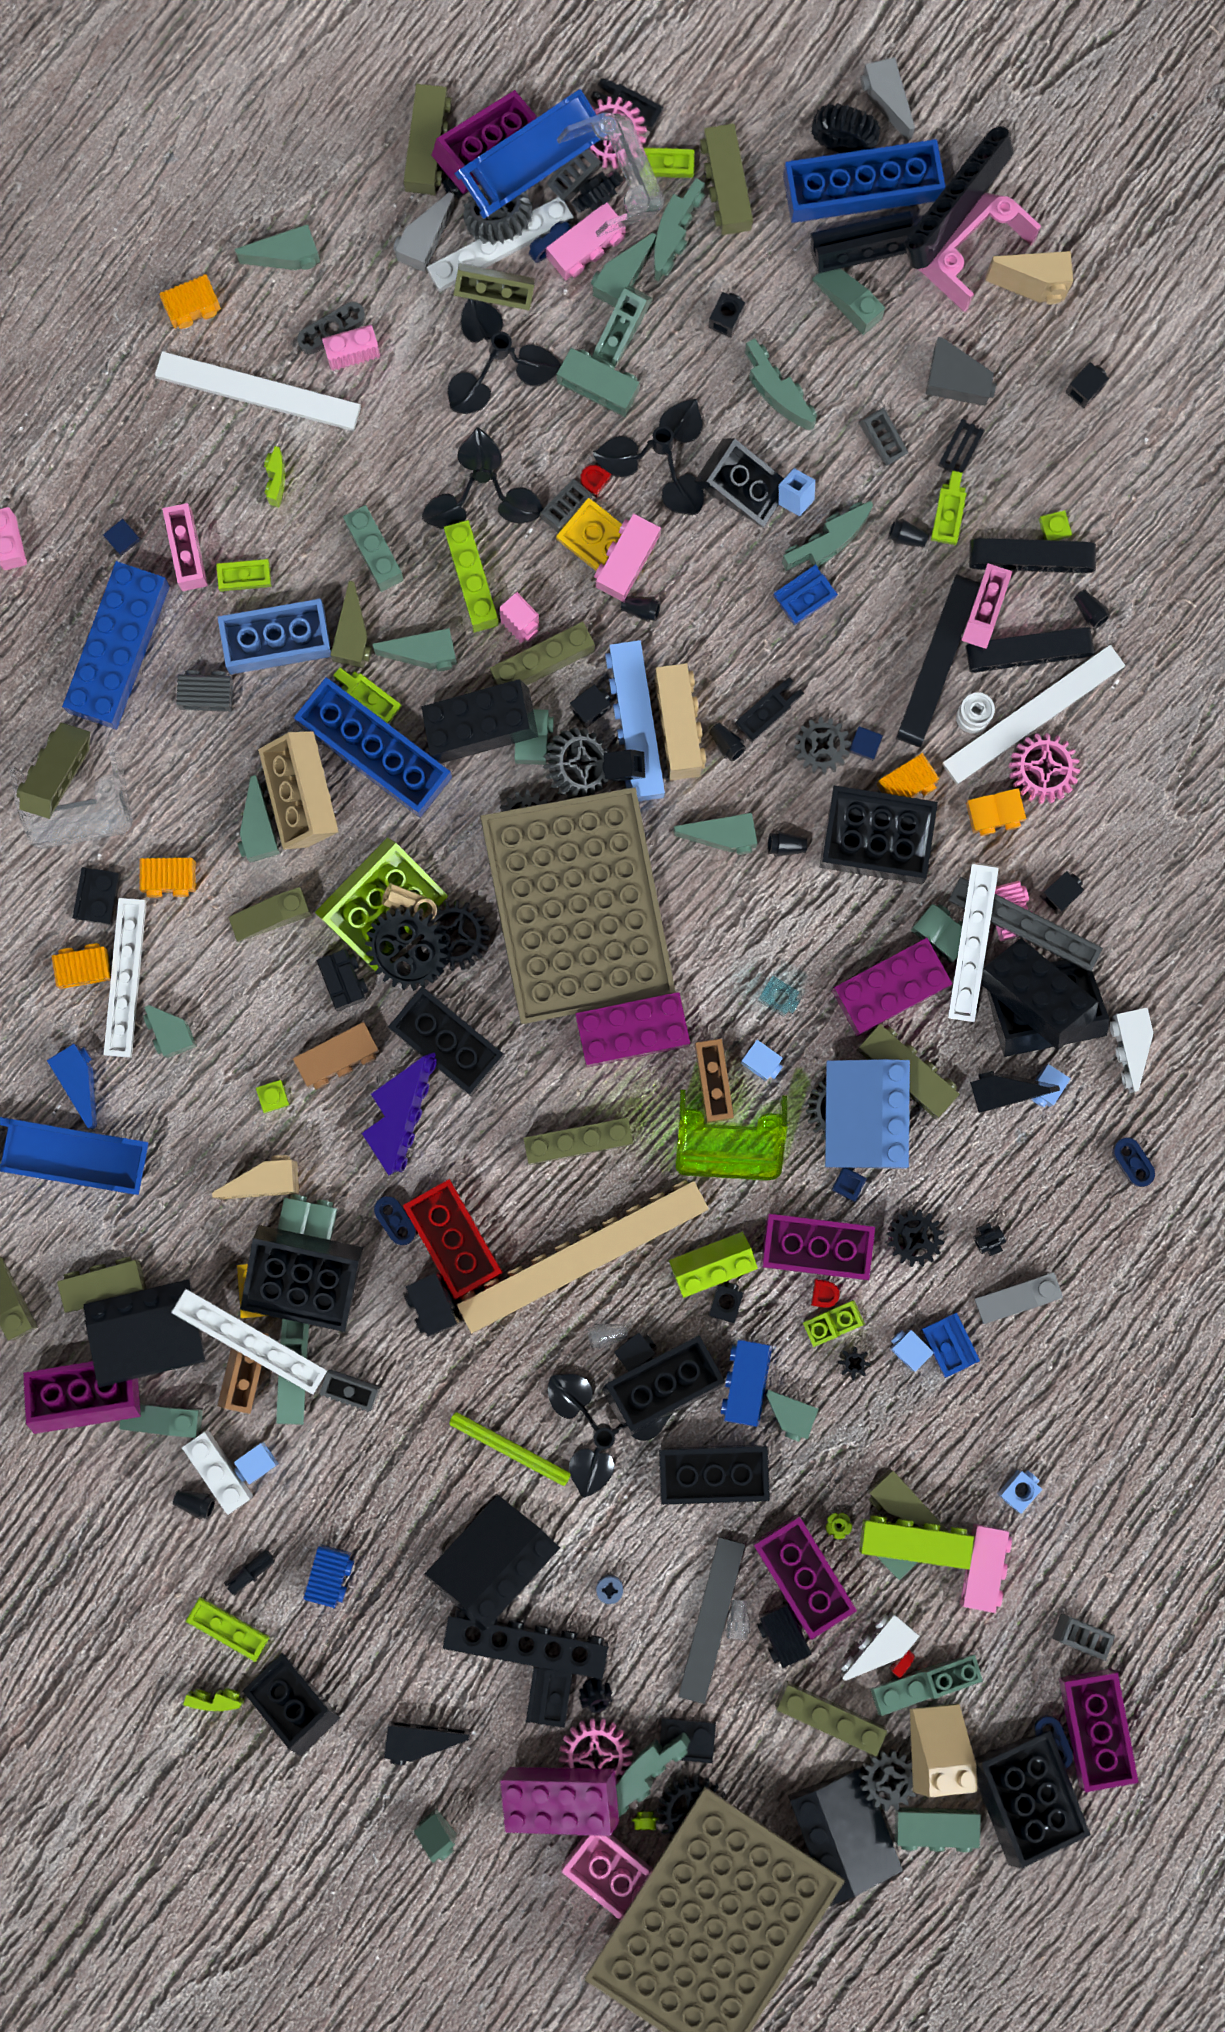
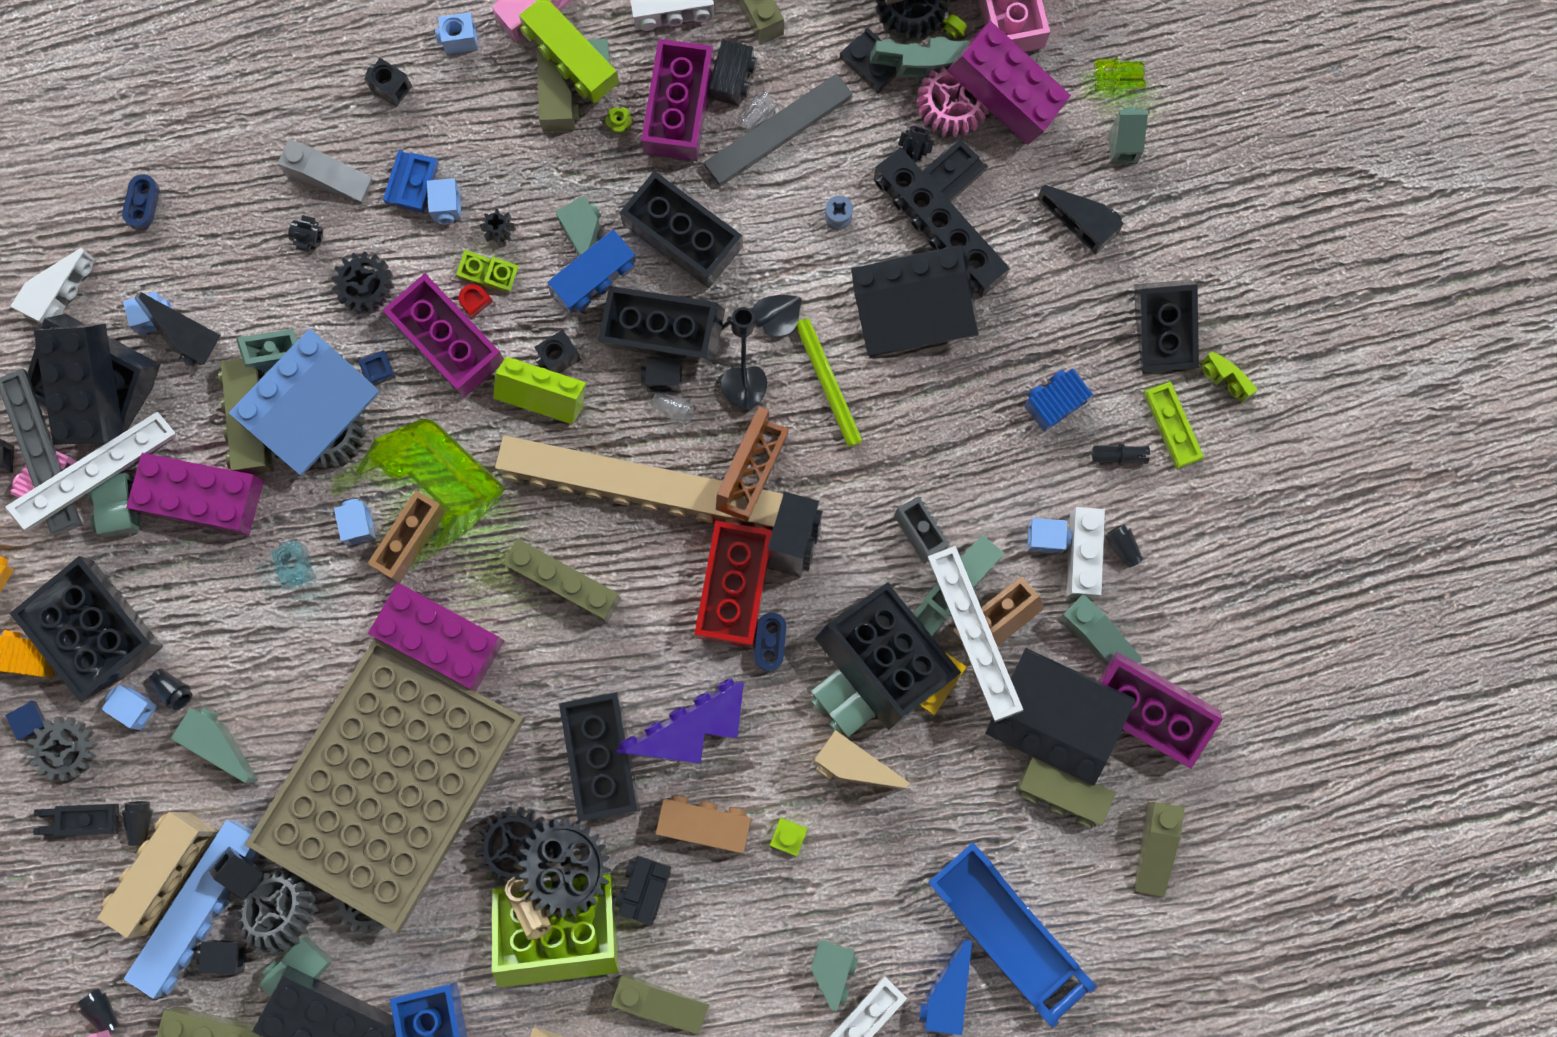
camera: 135 degrees left, 5 degrees down
(486, 1886) = (1122, 74): none -> clear neon green arm
(520, 1335) = (744, 458): none -> dark orange fence
(803, 809) = (129, 707): none -> light blue brick
(930, 1131) = (265, 349): none -> sand green slope
(1026, 1403) = (395, 89): none -> black brick

